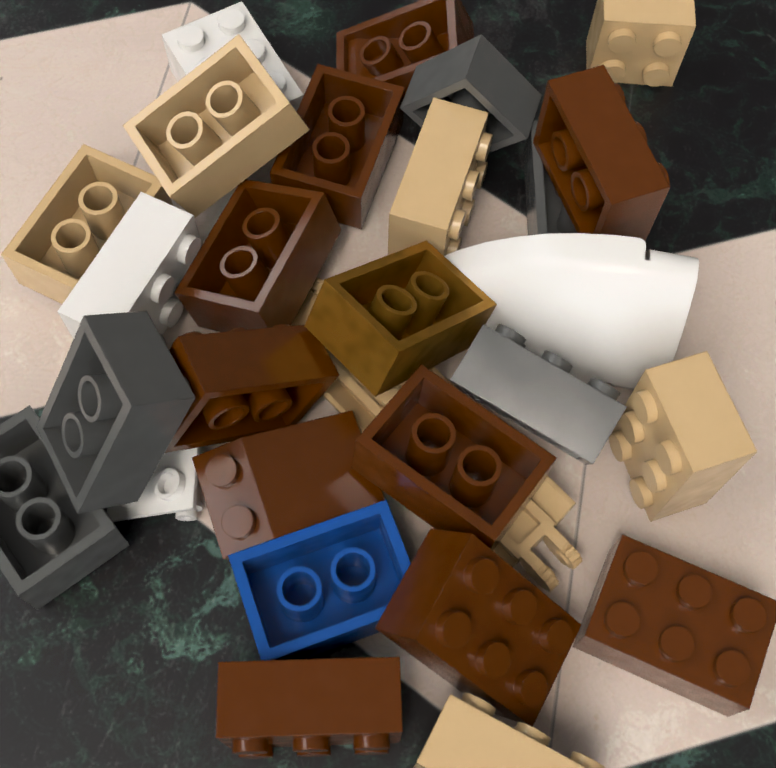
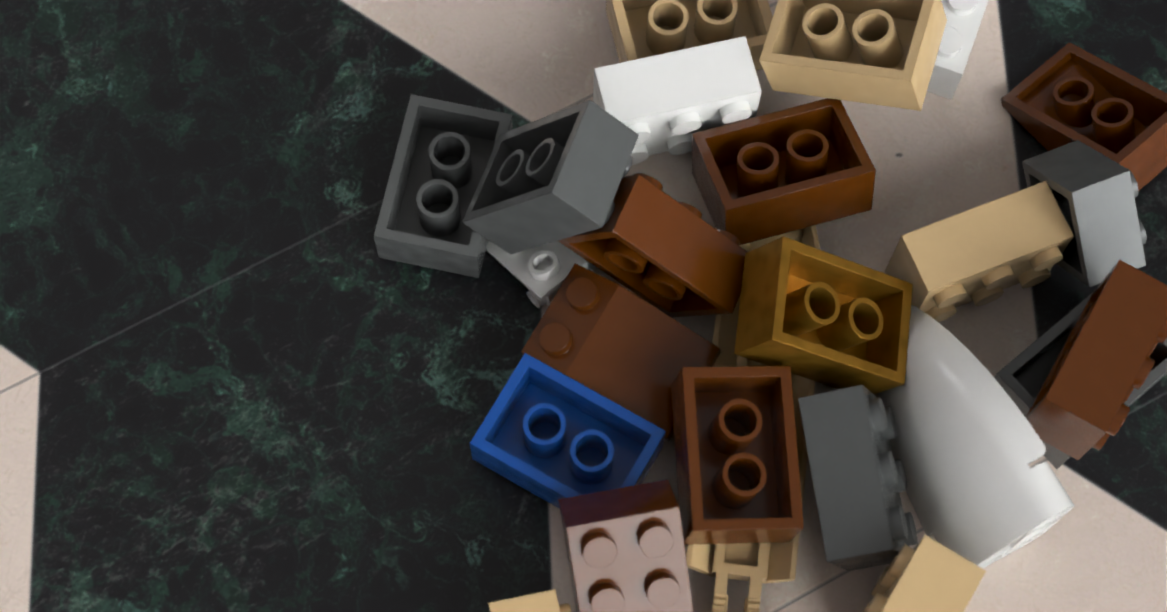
camera: 50 degrees right, 5 degrees up
(309, 705) = (471, 505): reddish brown brick -> none
(348, 141) = (959, 143): reddish brown brick -> none

